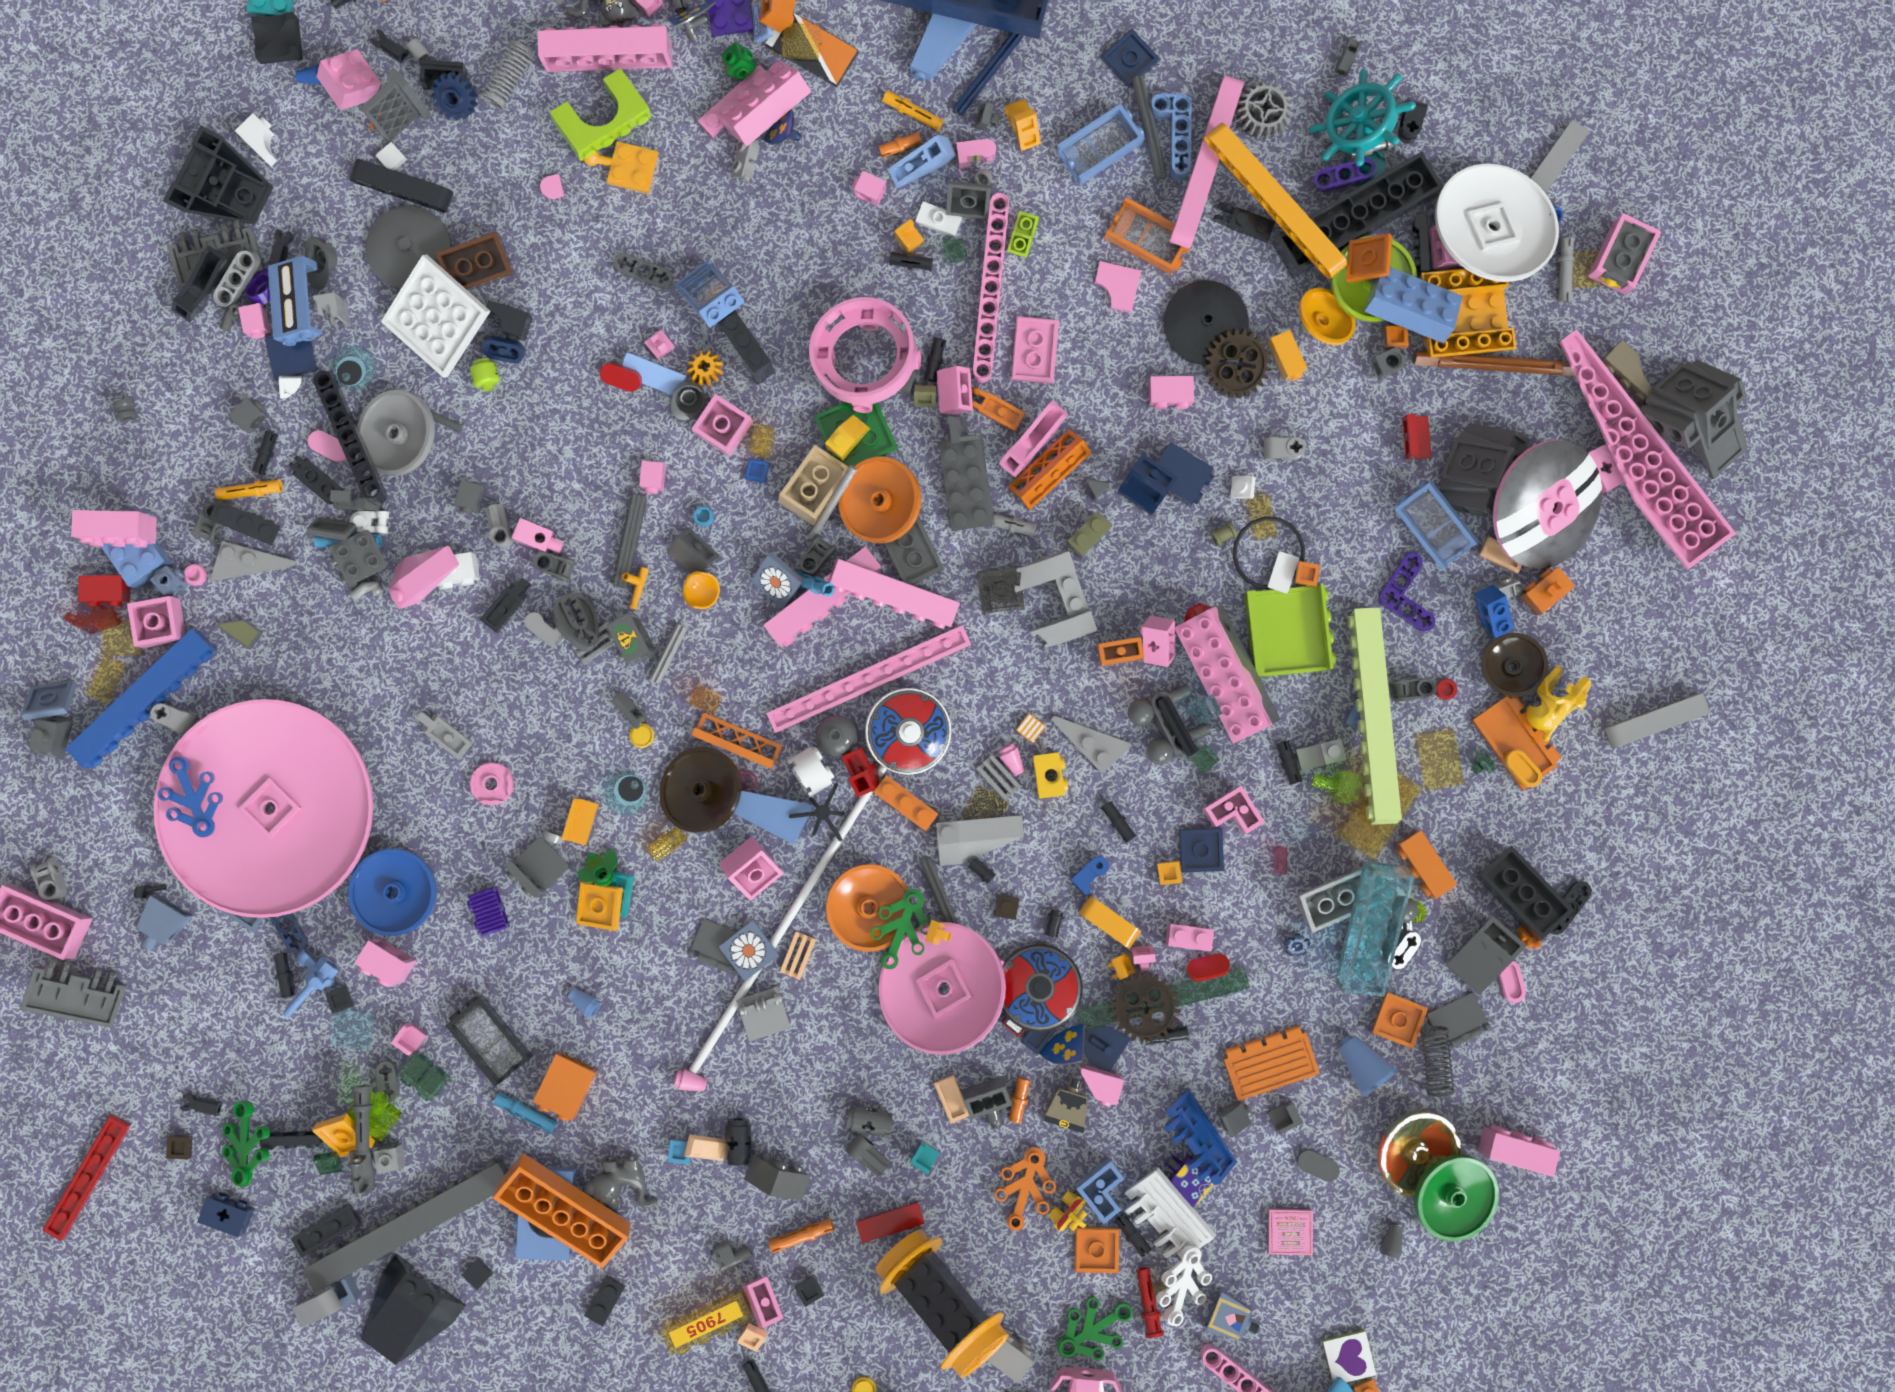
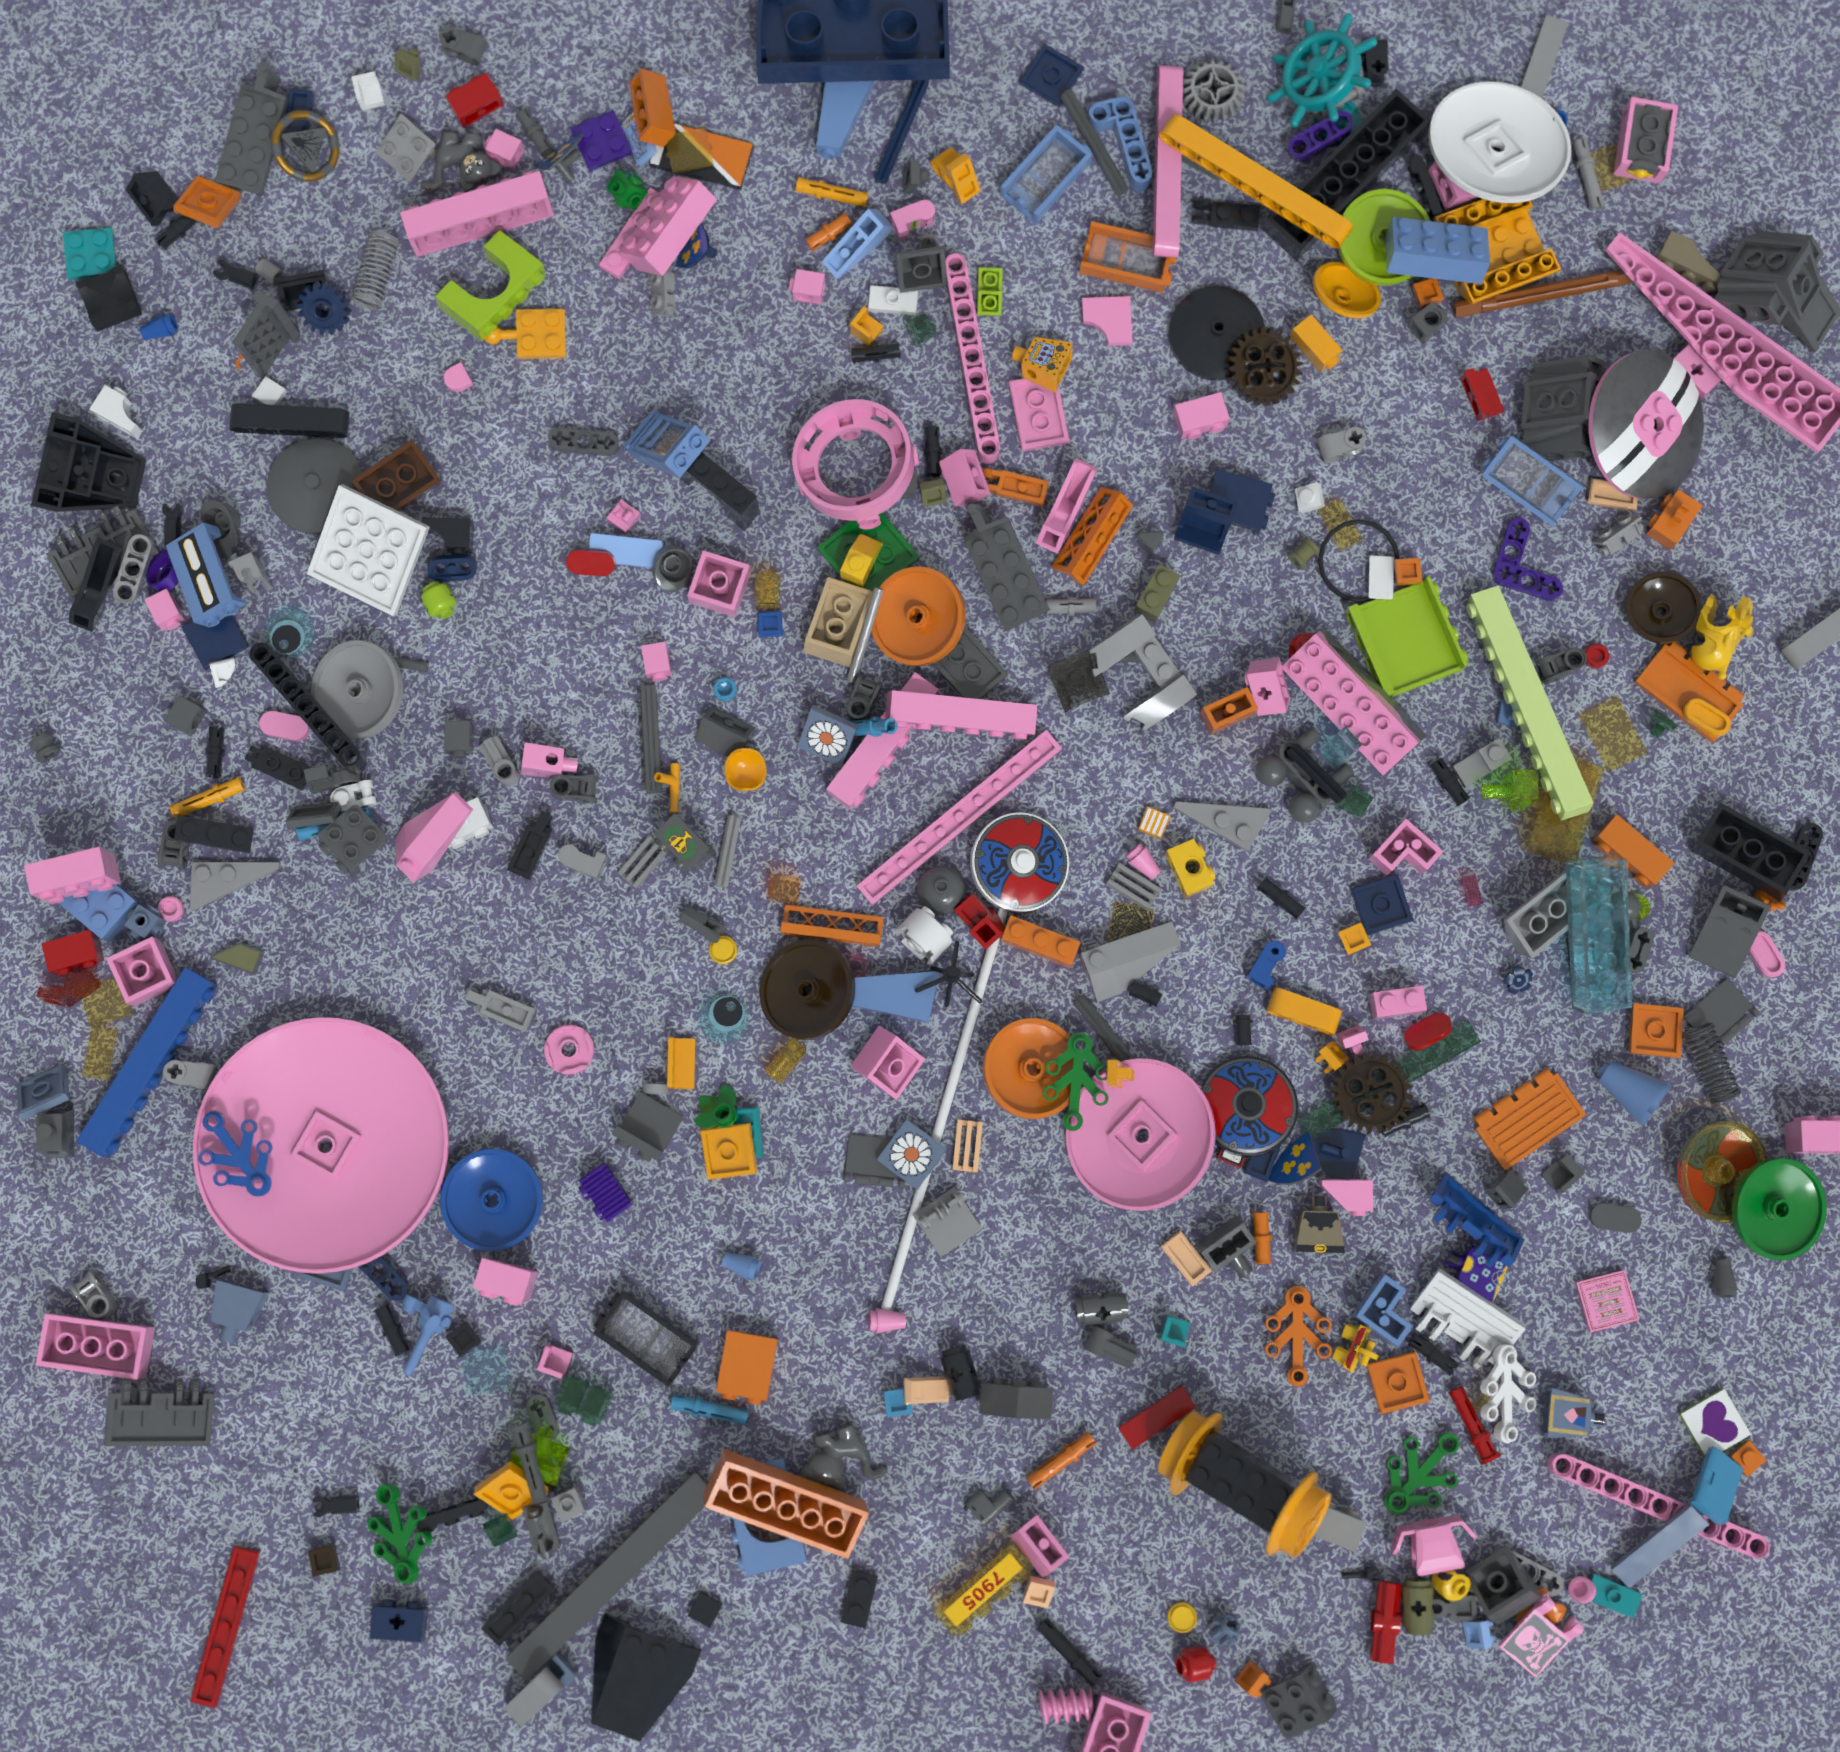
camera: 15 degrees left, 5 degrees down
(231, 314) = (135, 613): dark grey arm -> none
(348, 79) = (202, 320): bright pink brick -> none
(365, 587) = (369, 869): light grey arm -> none
(586, 615) = (624, 832): dark grey piece -> none
(711, 361) = (677, 535): light orange gear -> none
(809, 1290) = (1088, 1520): black plate -> none
(1006, 907) = (1185, 1027): dark brown plate -> none
(1051, 308) = (1045, 361): none -> light orange torso
(1369, 258) = (1374, 214): orange tile -> none
(1494, 611) = (1623, 555): blue brick -> none

